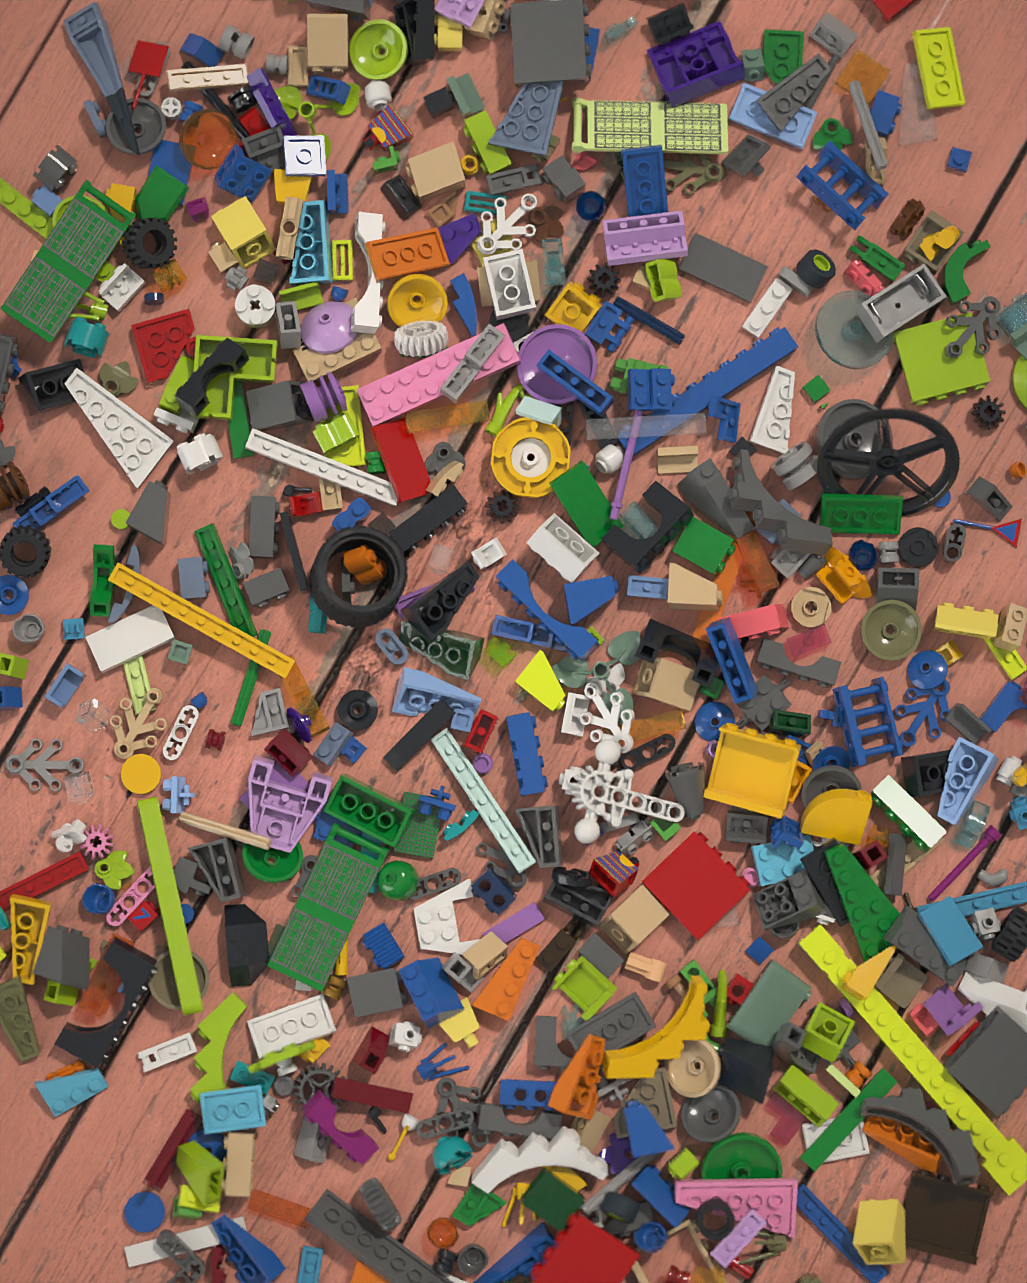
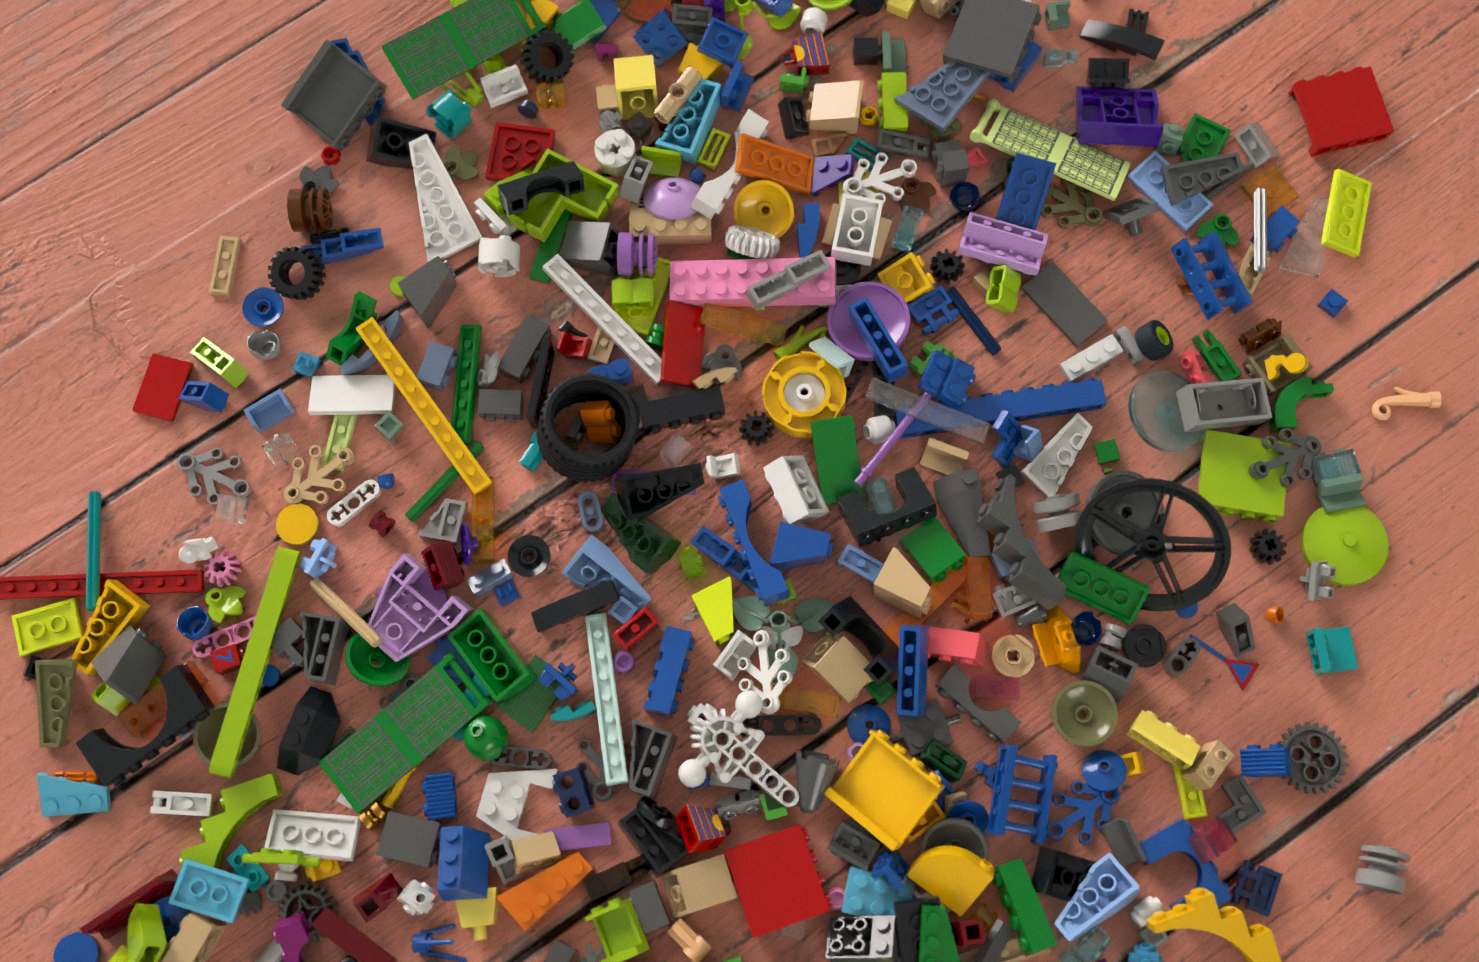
camera: 30 degrees right, 10 degrees down
(747, 414) = (1030, 445): none -> medium blue panel

